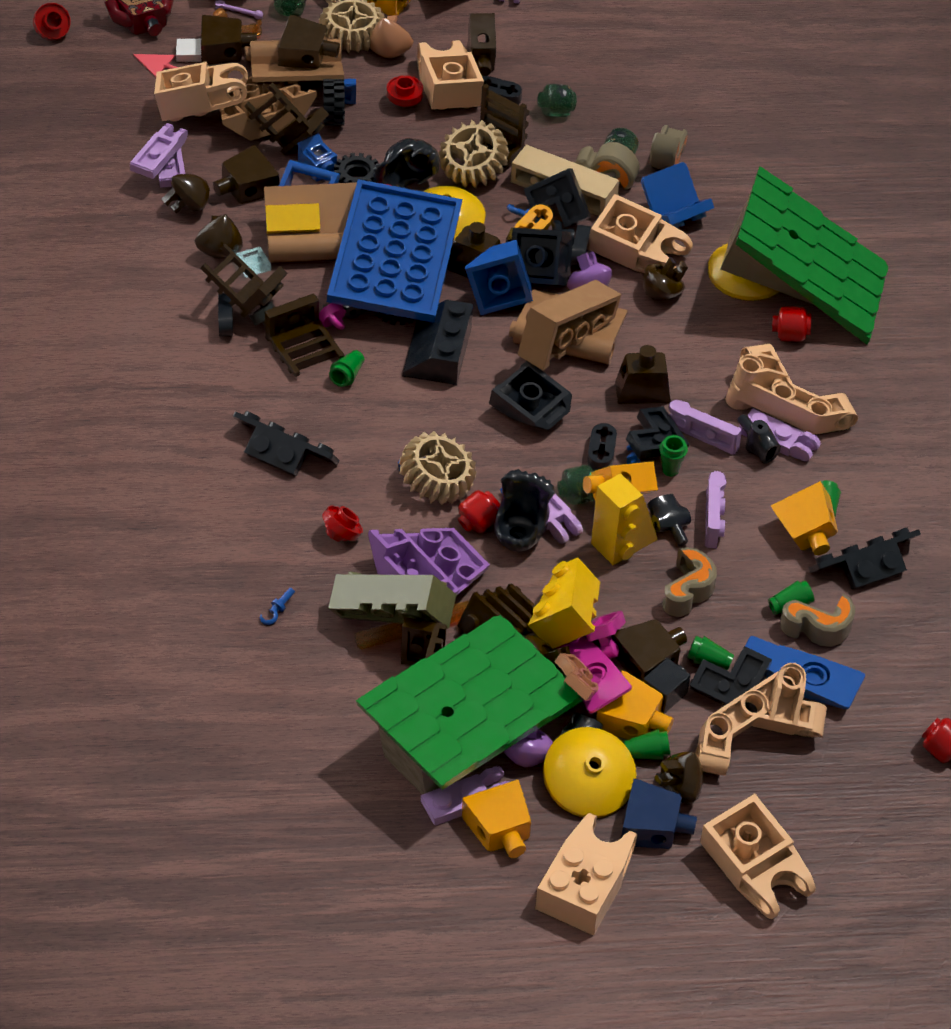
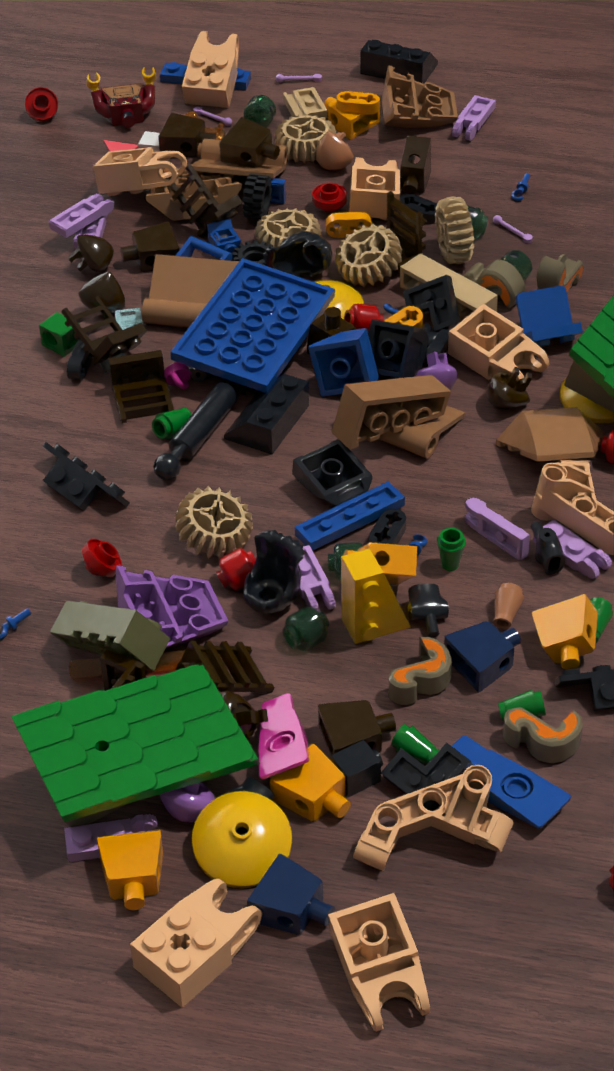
camera: 20 degrees right, 5 degrees down
(191, 289) = (57, 335): none -> green brick
(292, 218) = (174, 286): yellow tile -> none
(375, 134) = (283, 223): none -> tan gear
(376, 372) = (196, 430): none -> black piece
(436, 120) = (347, 223): none -> light orange beam
(497, 223) = (362, 314): none -> red head
(552, 114) = (454, 230): none -> tan gear
(561, 437) = (349, 516): none -> blue plate
(564, 550) = (305, 628): none -> clear green head
(566, 604) = (280, 668): yellow wedge -> none
(577, 675) = (257, 739): nougat tile -> none
(591, 52) = (522, 186): none -> blue hand
(605, 627) = (307, 703): dark pink piece -> none
(616, 109) = (527, 238): none -> lavender hinge
(643, 378) = (452, 473): dark brown torso -> none
(649, 745) = (315, 825): green cone -> none
(657, 426) = (446, 516): black plate -> none
(682, 775) = (333, 861): dark brown piece -> none
(714, 508) = (478, 600): lavender hinge -> none
(724, 323) = (552, 435): none -> medium nougat wedge
(737, 553) = (482, 653): none -> dark blue torso
(741, 500) = (507, 603): none -> nougat cone

